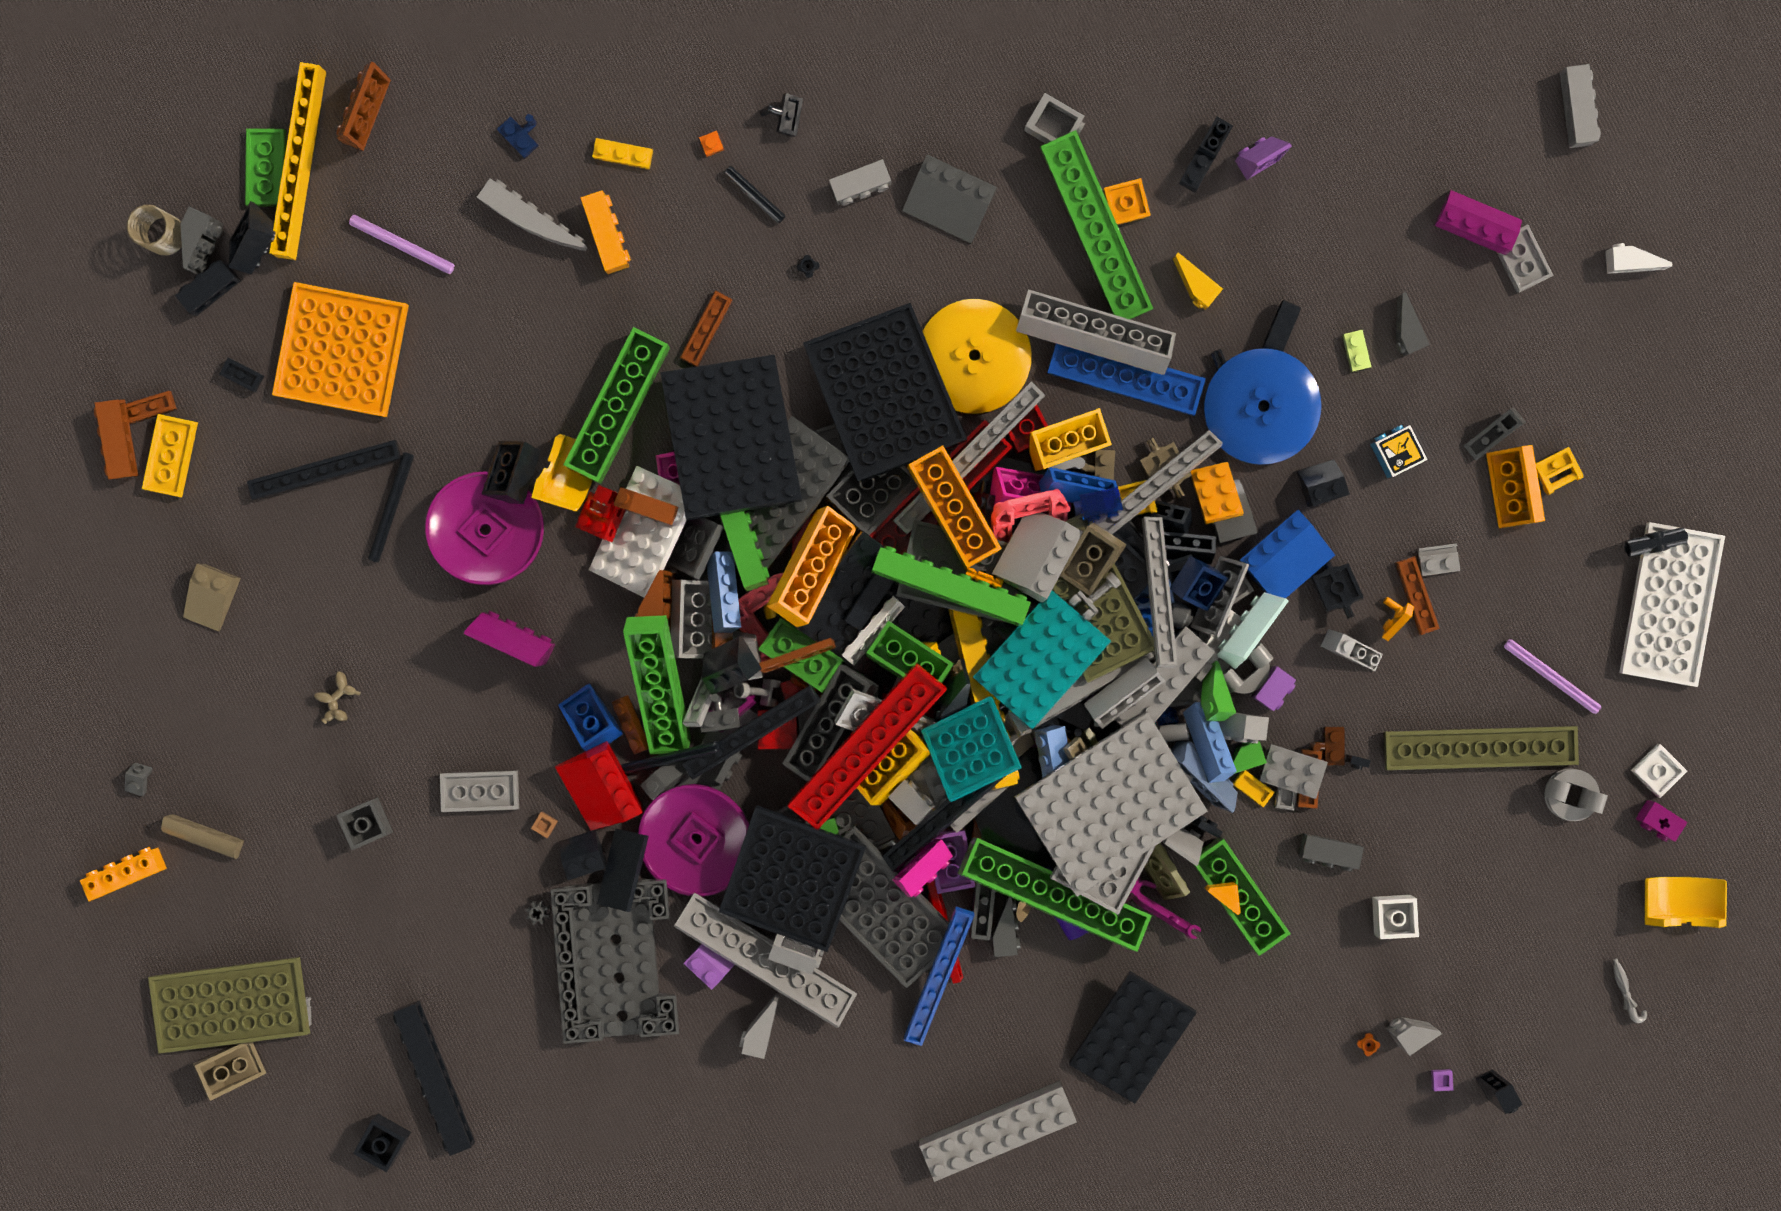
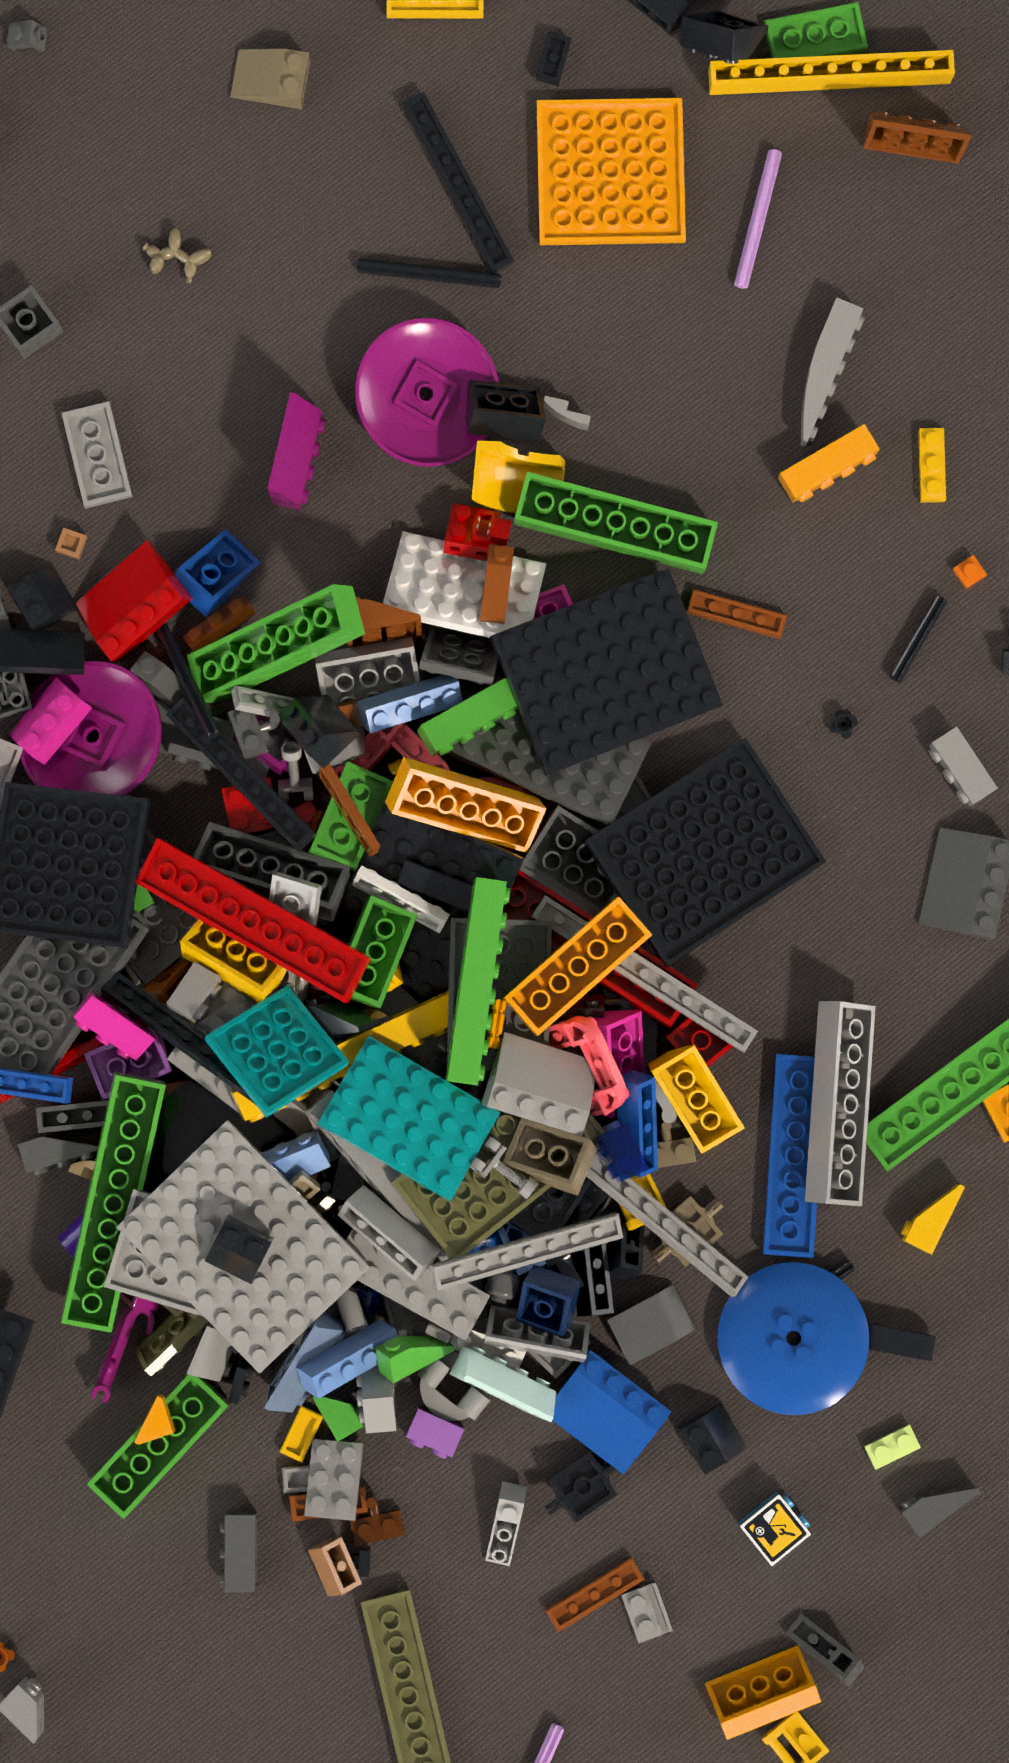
camera: 75 degrees right, 5 degrees down
(518, 135) = (924, 333): dark blue plate -> none
(518, 430) = (559, 408): none -> light grey slope
(679, 868) = (50, 721): none -> dark pink slope
(1003, 352) = (786, 993): yellow dish -> none
(1114, 807) = (239, 1249): none -> black slope
(1216, 493) = (670, 1303): light orange plate -> none
(1357, 783) = (334, 1566): none -> medium nougat brick
(1395, 916) = (172, 1654): white brick -> none
(1400, 618) = (564, 1576): light orange plate -> none

